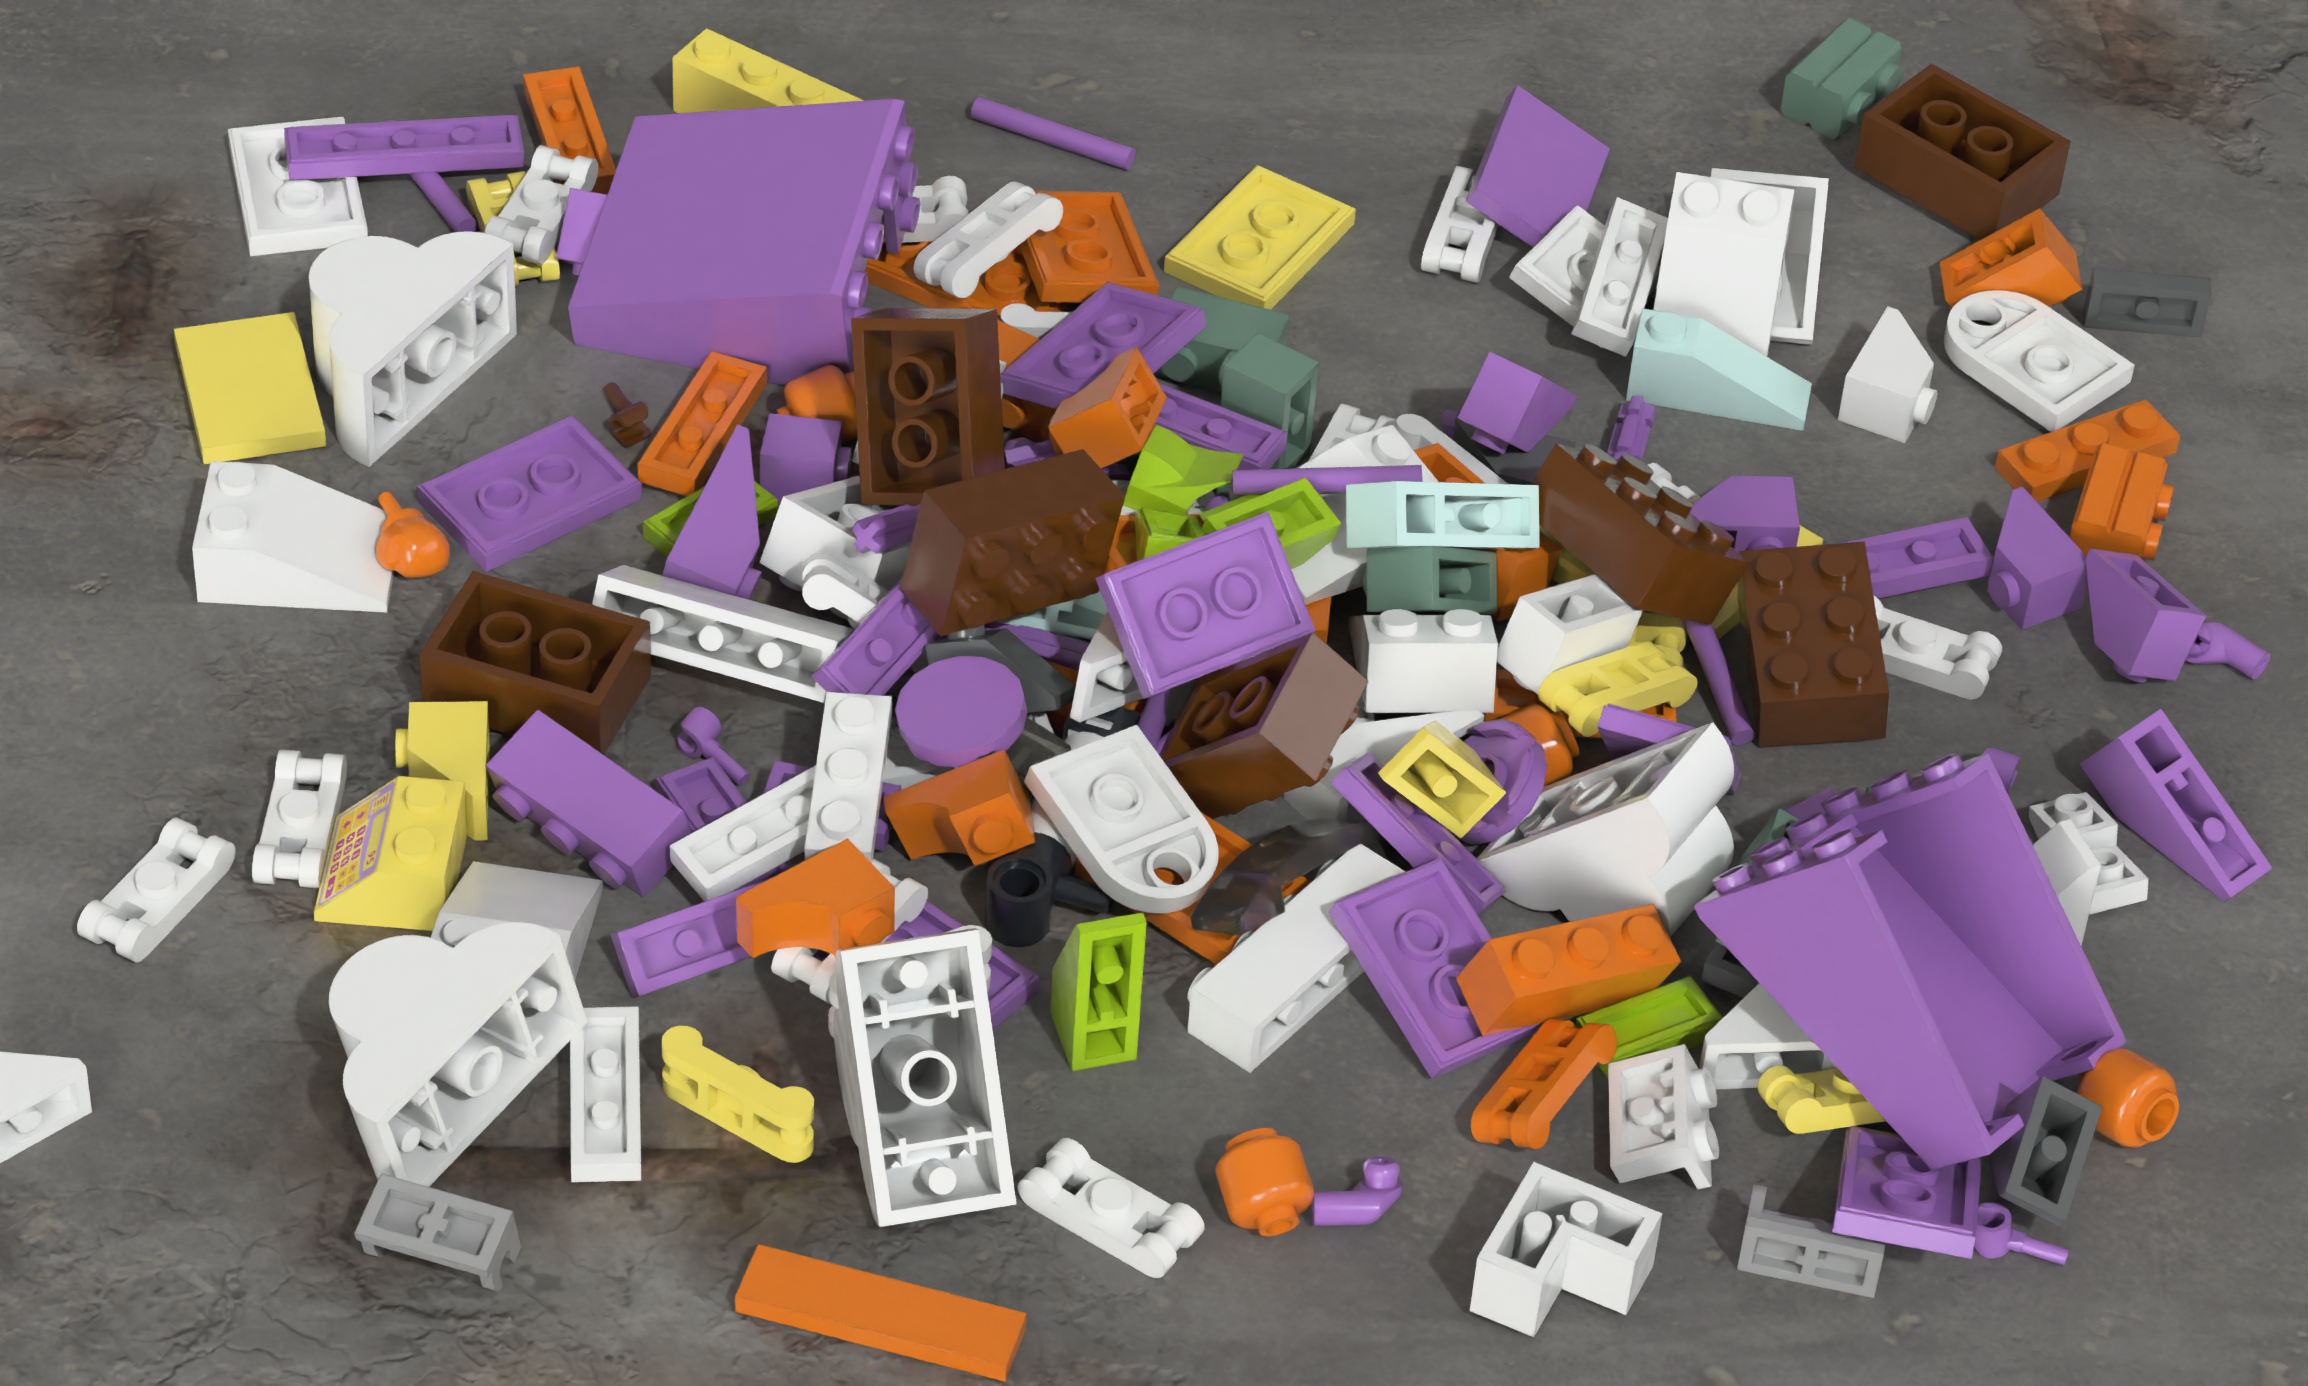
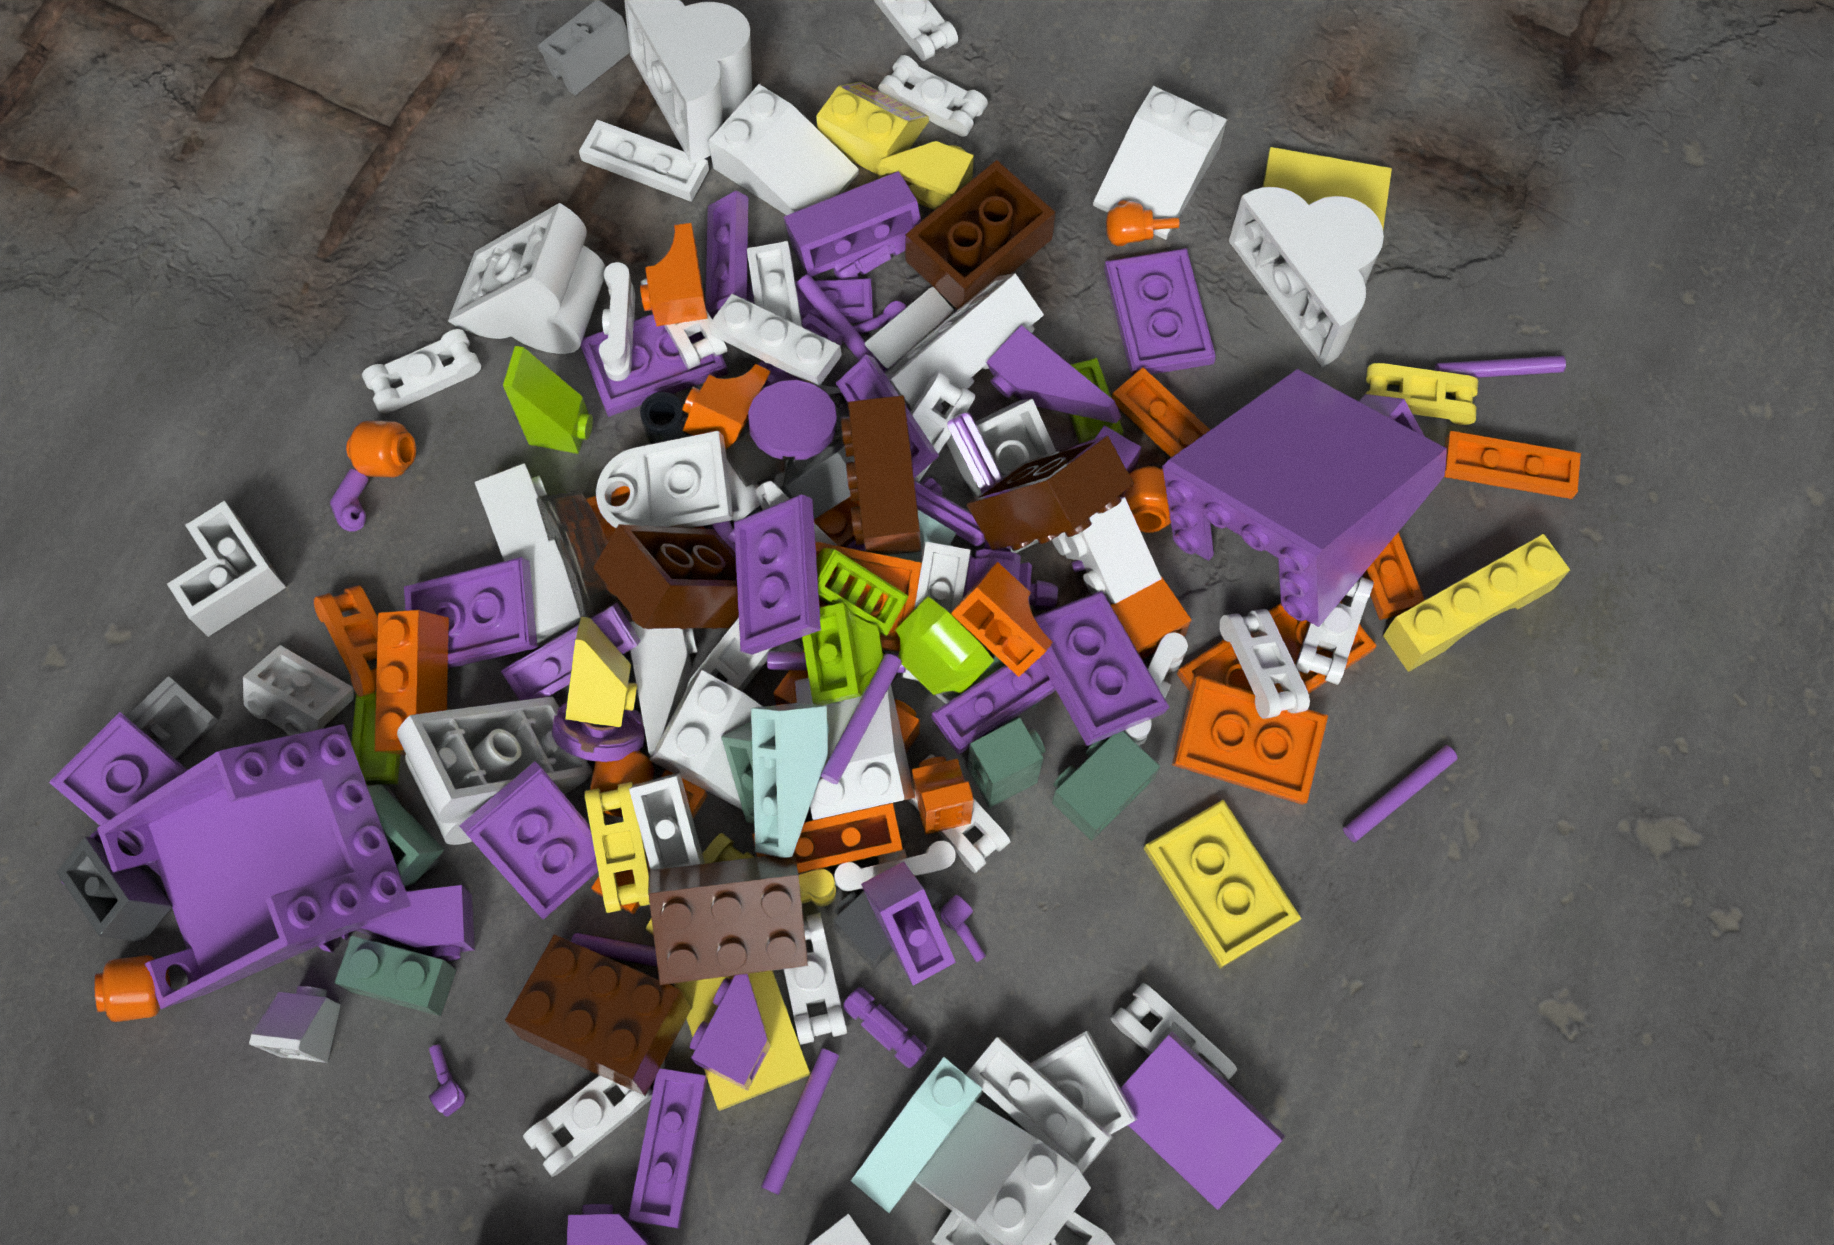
camera: 120 degrees right, 25 degrees up
(290, 213) = (1521, 290): white tile -> none
(403, 147) = (1524, 353): medium lavender tile -> none
(538, 205) = (1421, 396): white plate -> none
(628, 422) = (1195, 391): reddish brown hand -> none
(718, 697) = (909, 327): none -> white sticker
(737, 1097) = (616, 208): light yellow plate -> none
(759, 767) = (835, 318): none -> medium lavender bar
(881, 1312) = (424, 233): orange tile -> none
(1360, 400) = (942, 794): none -> orange arch
(1804, 478) = (800, 1121): none -> medium lavender bar
(2119, 878) = (346, 1113): white slope -> none
(2173, 805) = (337, 1194): medium lavender slope -> none

